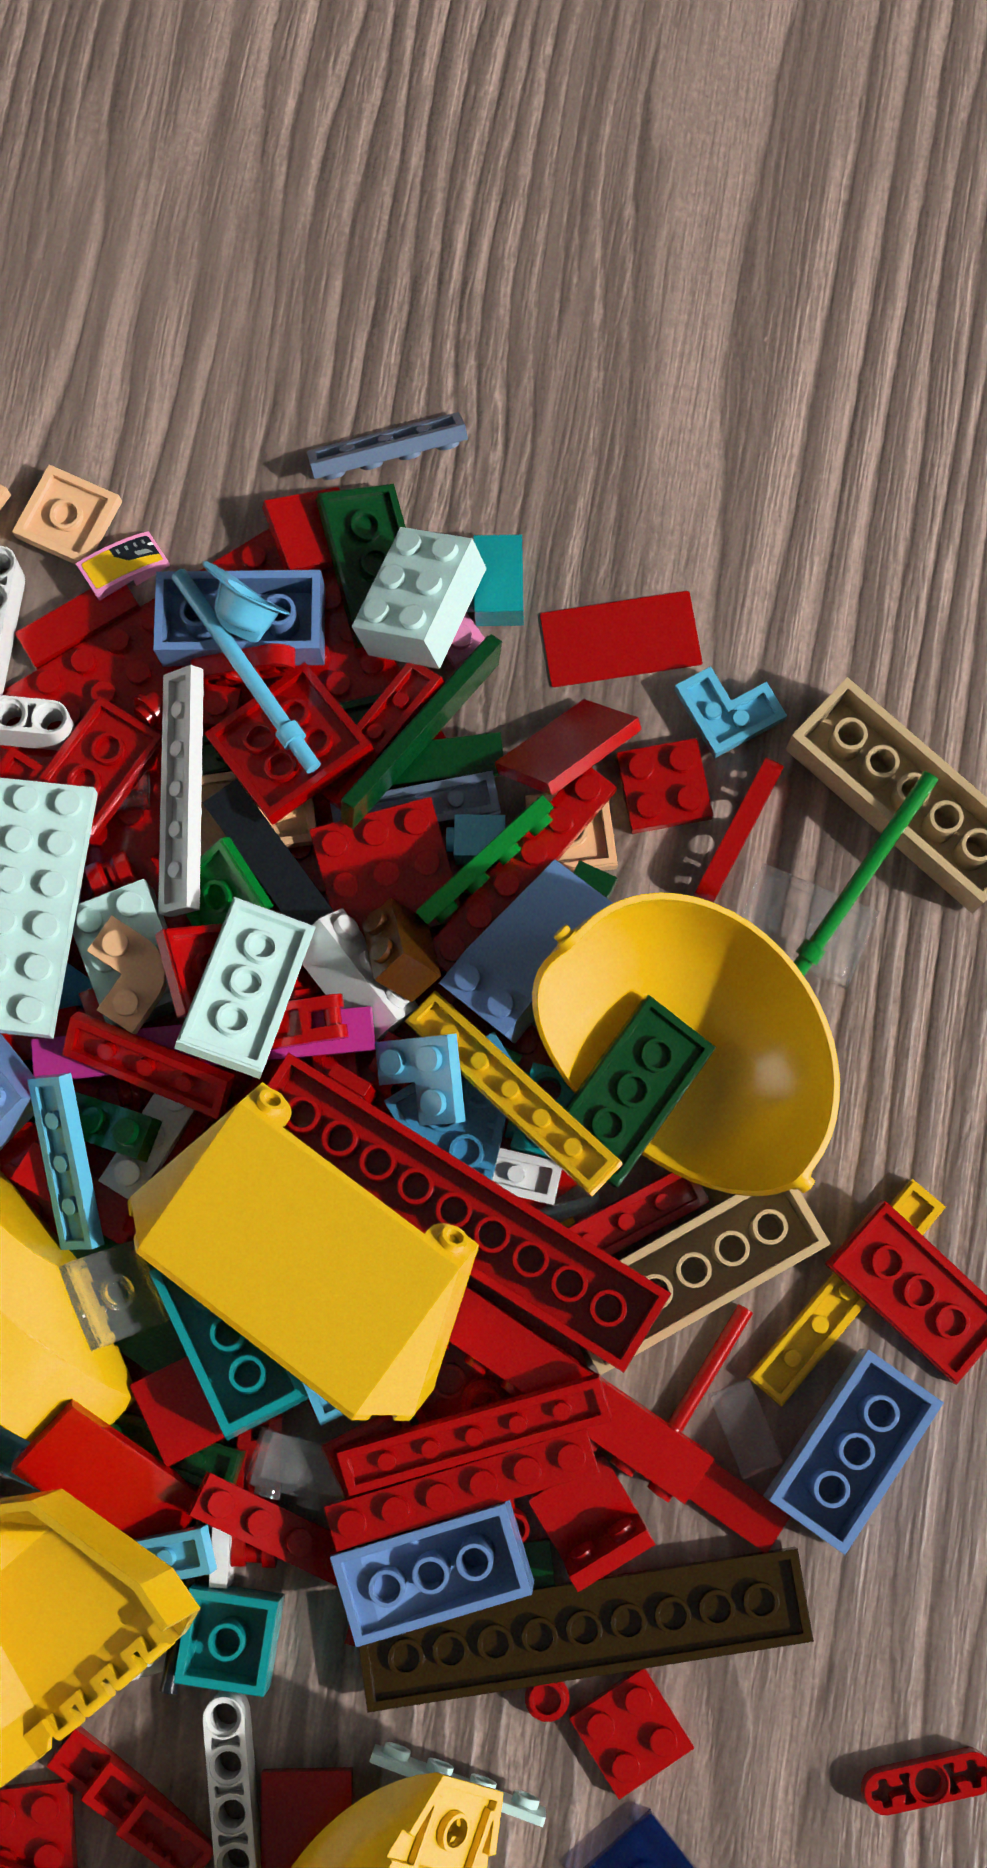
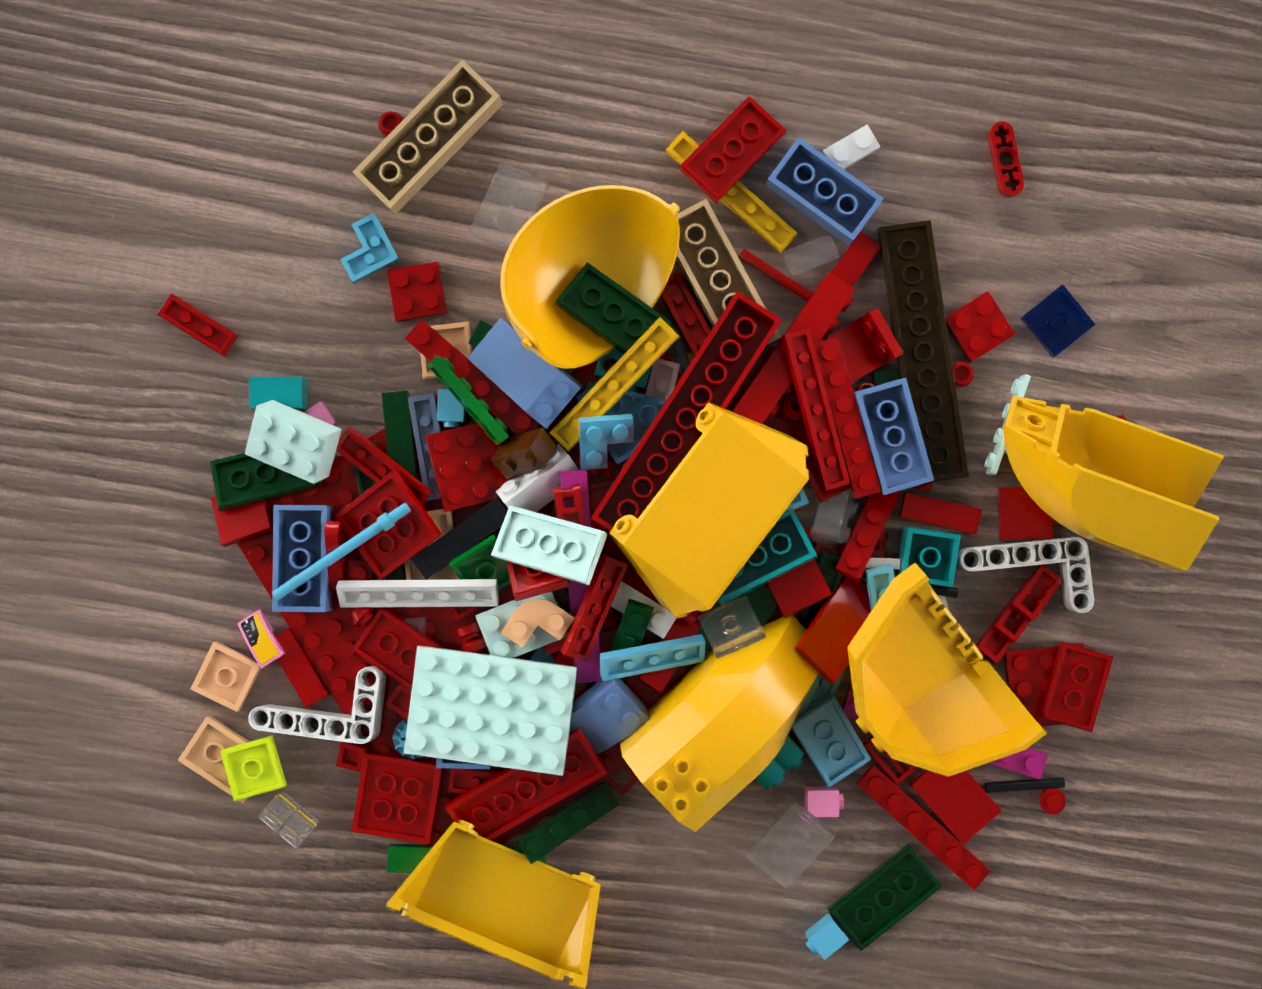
camera: 90 degrees left, 10 degrees up
(240, 608) = (300, 553): medium azure piece -> none
(307, 1662) = (940, 513): none -> red tile
(353, 1083) = (606, 483): red tile -> none
(401, 443) = (182, 465): sand blue plate -> none
(420, 731) = (381, 441): dark green tile -> none
(568, 746) = (393, 349): red tile -> none
(603, 463) = (198, 325): none -> red tile
(621, 639) = (318, 317): red sticker -> none
(739, 830) = (448, 245): red beam -> none
(812, 950) = (525, 203): green bar -> none
(932, 1500) = (852, 147): none -> white plate
(934, 736) = (389, 122): none -> red plate

